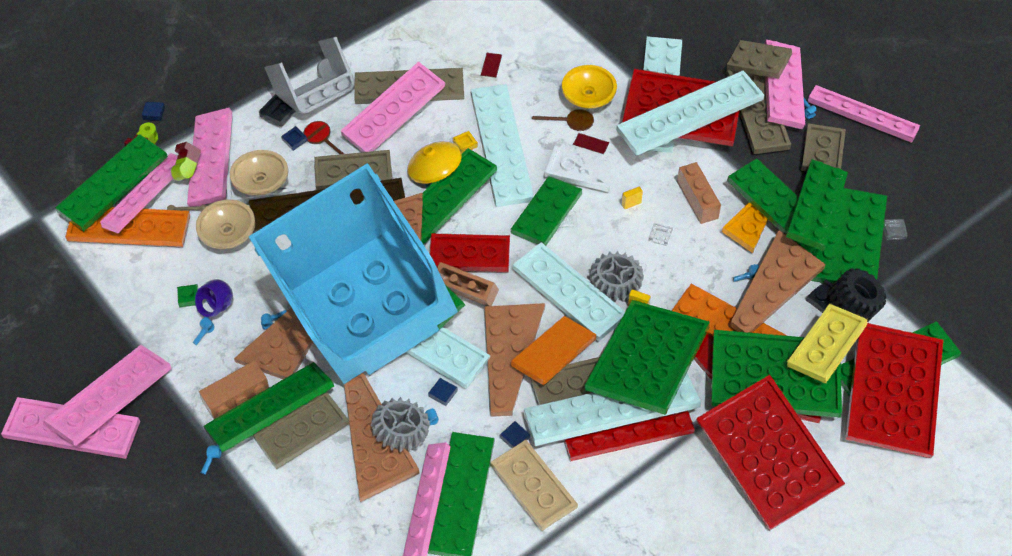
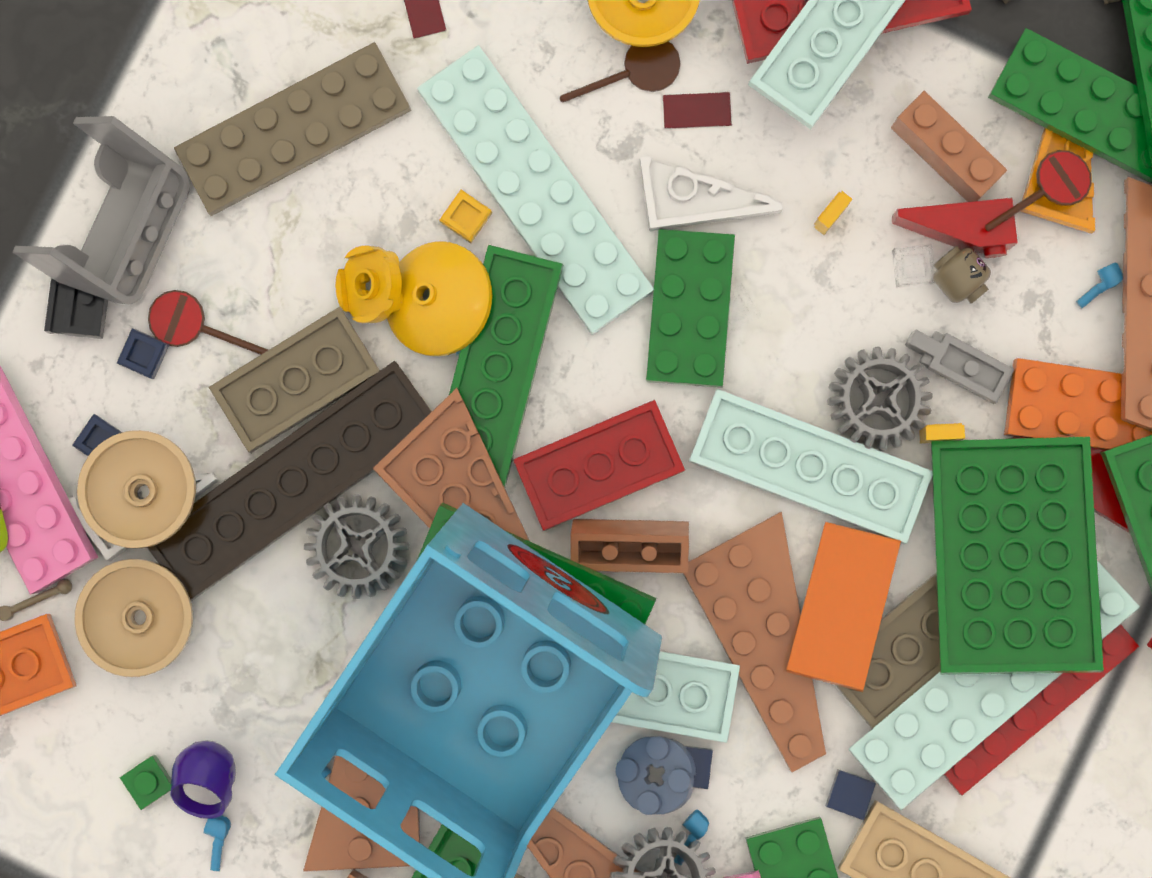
camera: 25 degrees left, 30 degrees up
(393, 108) = (298, 209): bright pink plate -> none
(408, 145) = (386, 284): none -> yellow plate
(415, 379) = (678, 776): none -> sand blue plate
(663, 278) = (961, 364): none -> light grey hinge
(680, 241) = (961, 275): none -> dark tan head
(693, 225) = (963, 225): none -> red slope
(744, 219) = (1061, 179): none -> piece

